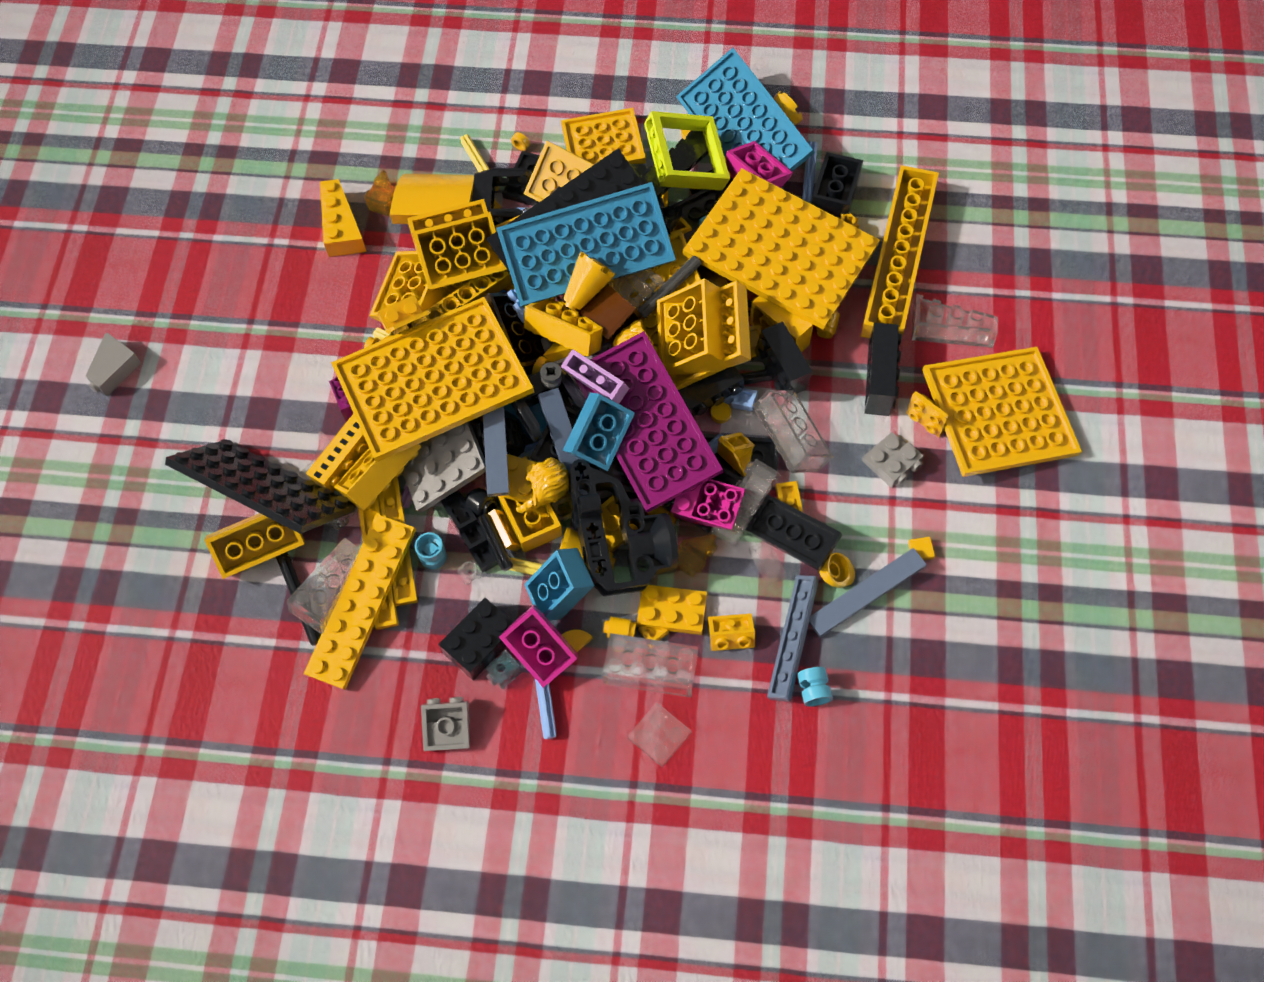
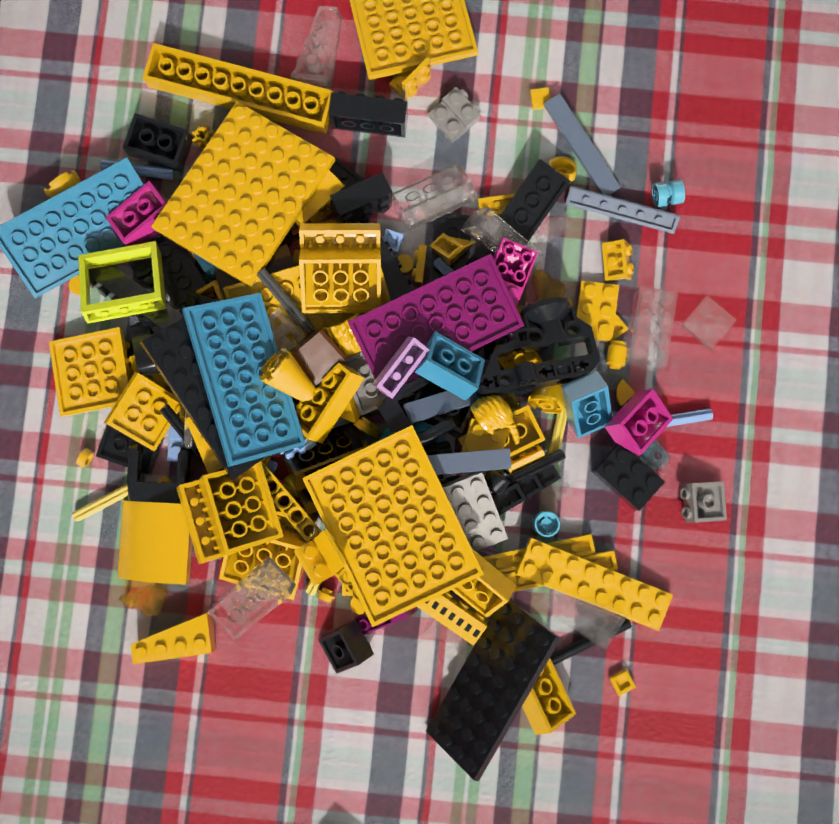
camera: 90 degrees left, 20 degrees up
(251, 636) = (622, 682): none -> yellow tile
(317, 365) = (346, 646): none -> black slope
(373, 273) = (252, 598): none -> clear brick
(551, 381) = (397, 412): dark grey wheel -> none
(712, 425) = (420, 258): none -> yellow plate
(817, 350) = (345, 174): none -> black plate

